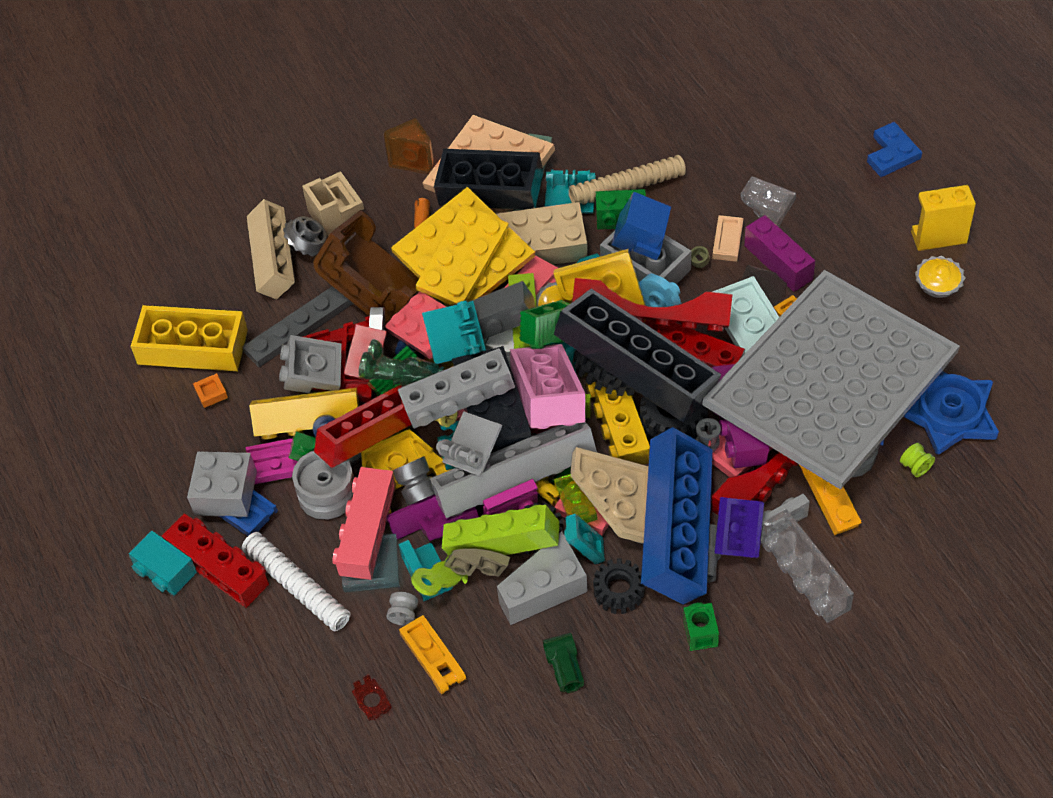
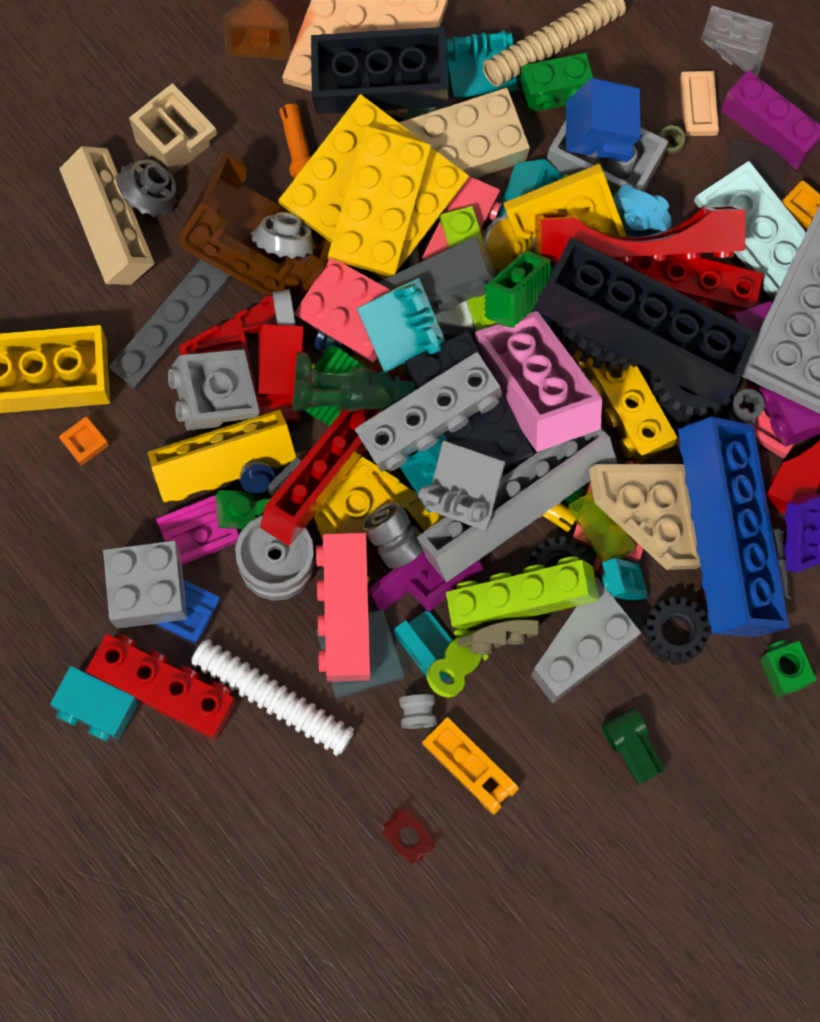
camera: 20 degrees left, 20 degrees up
(391, 273) = (284, 235): none -> light grey piece
(512, 499) = (530, 536): dark pink plate -> none

